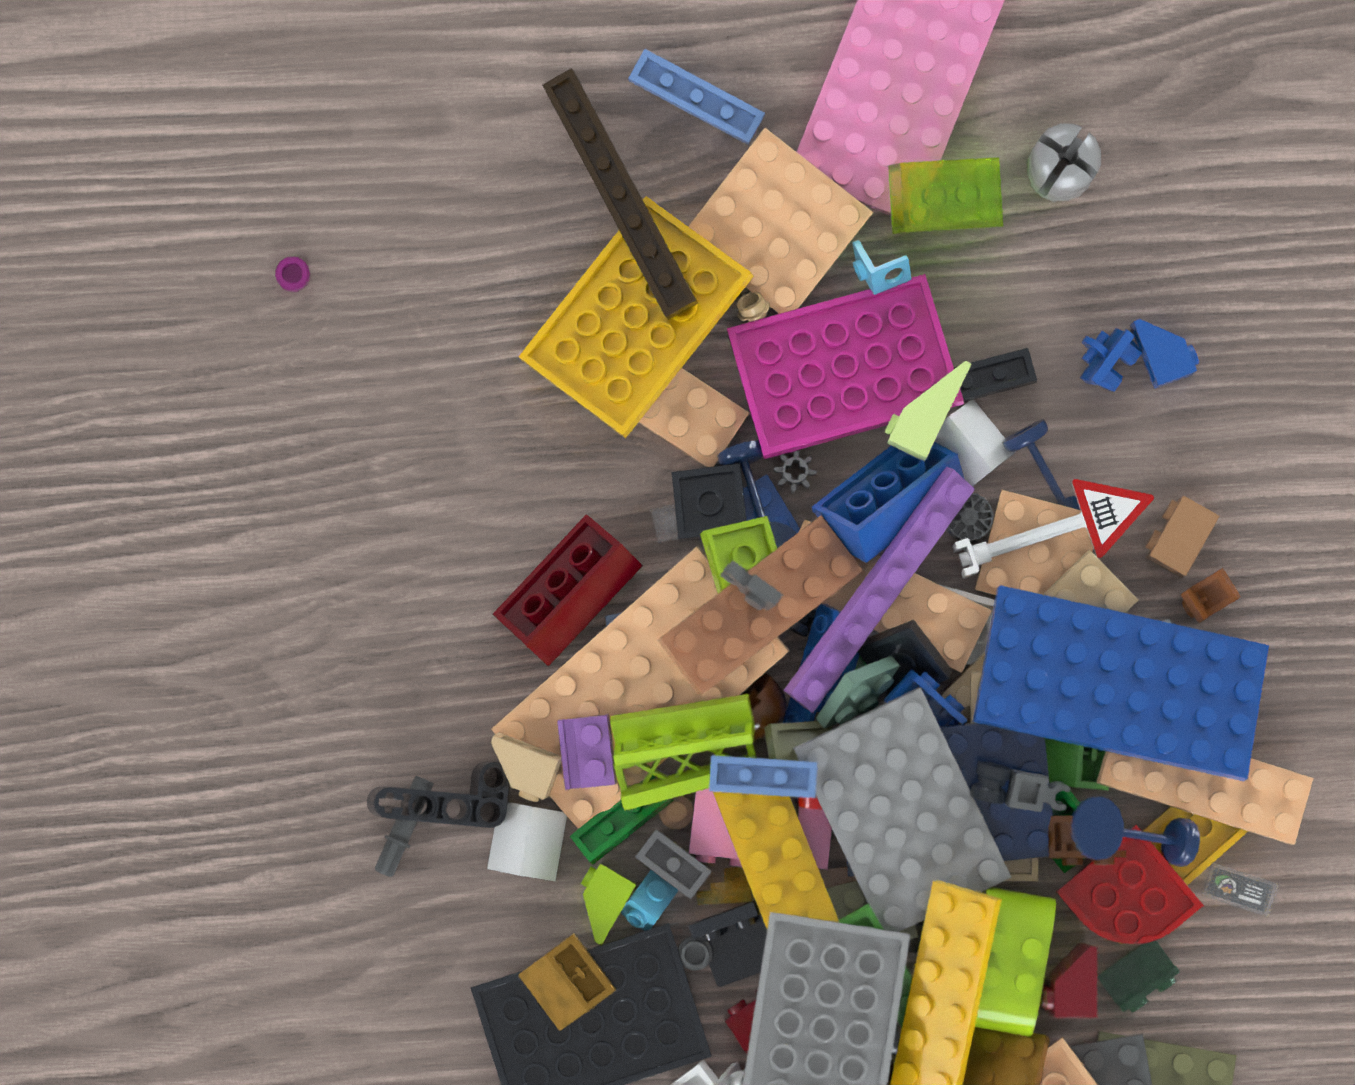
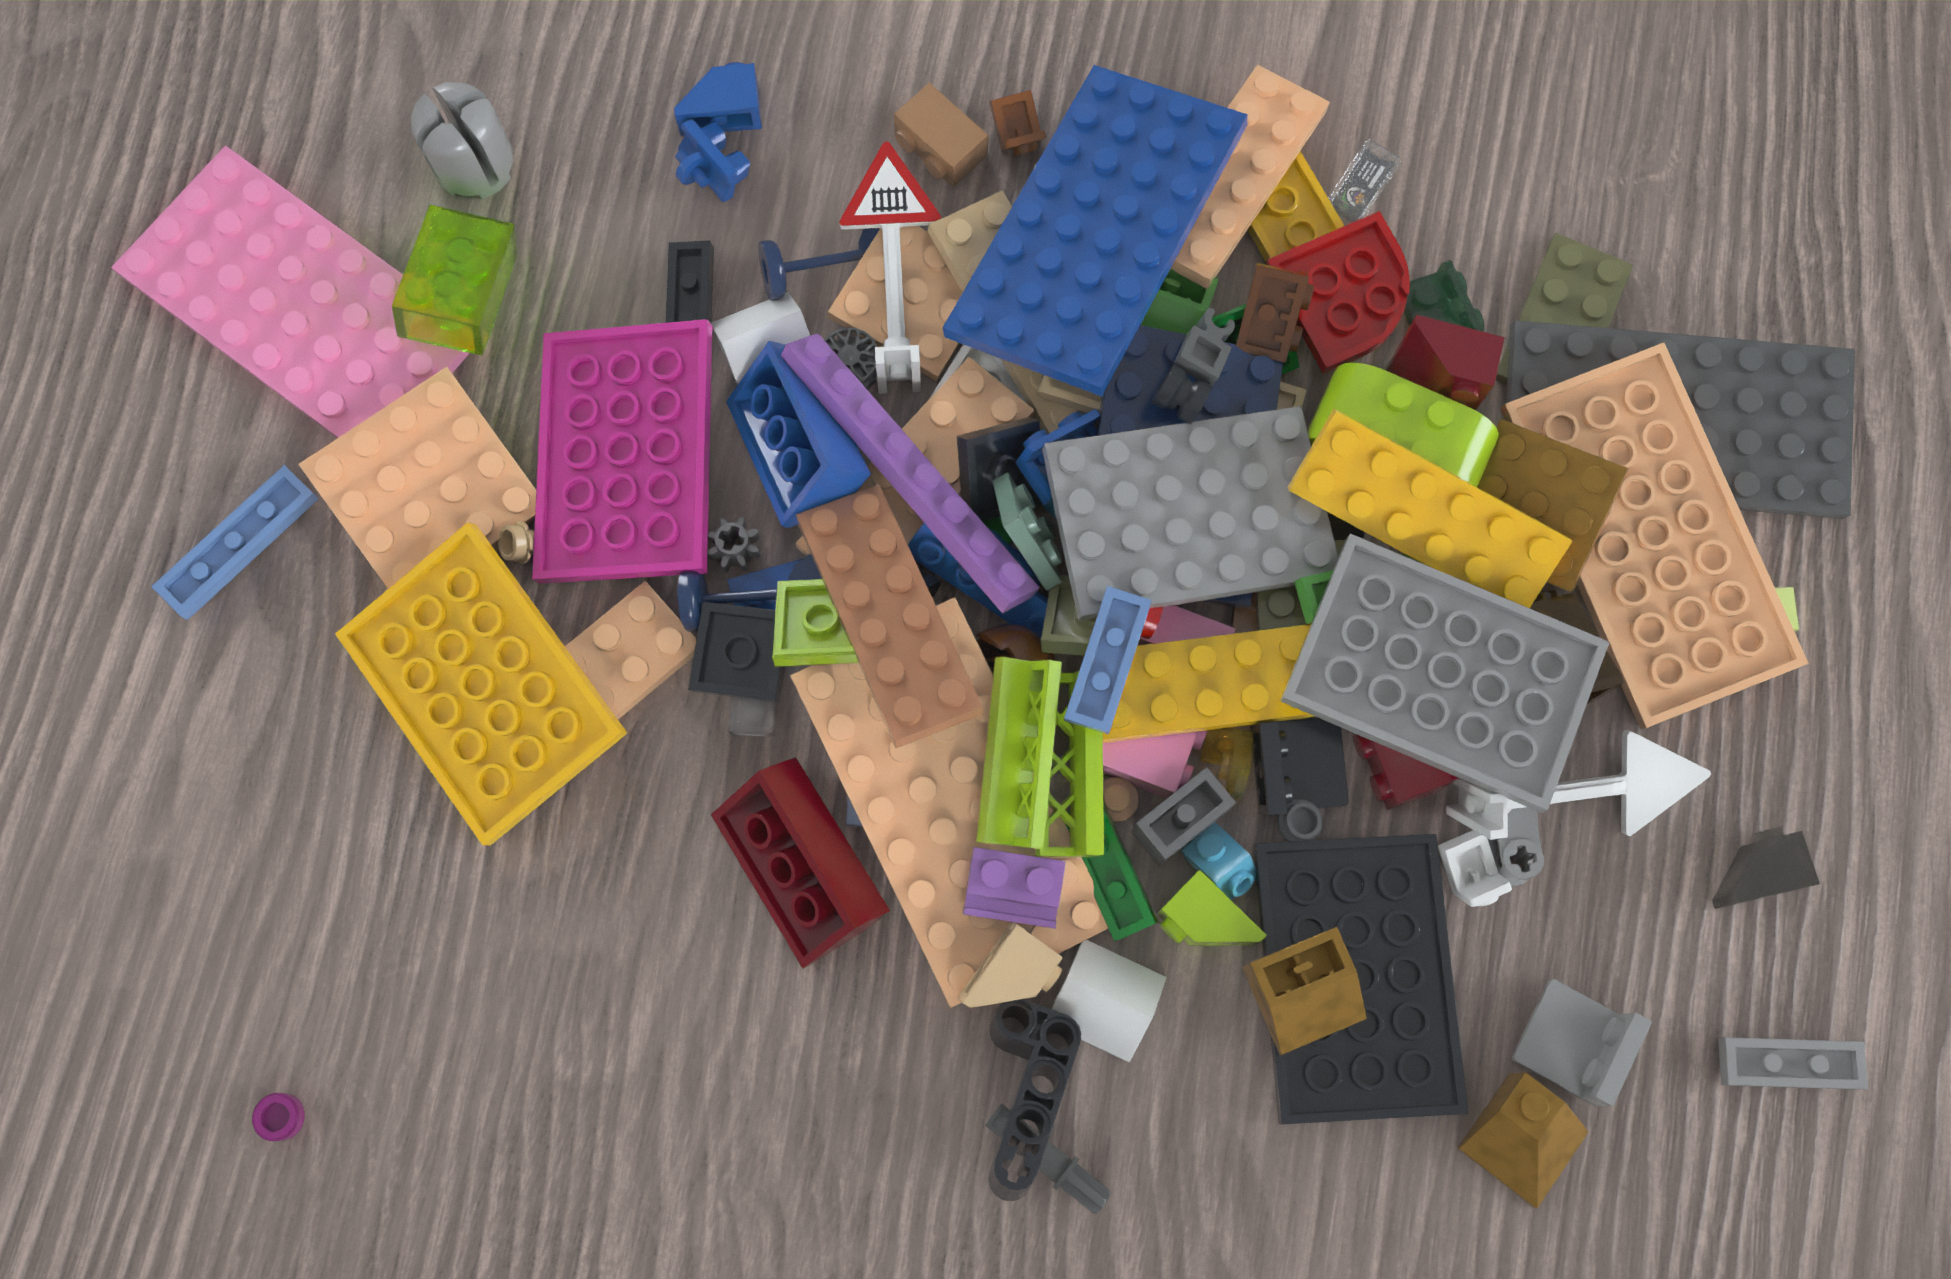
camera: 75 degrees left, 10 degrees down
(620, 194) = (317, 659): dark brown plate -> none
(757, 591) = (864, 604): dark grey plate -> none
(876, 275) = (523, 386): medium azure bracket -> none
(923, 418) = (719, 367): yellowish green slope -> none
(1100, 828) = (1297, 217): dark blue piece -> none

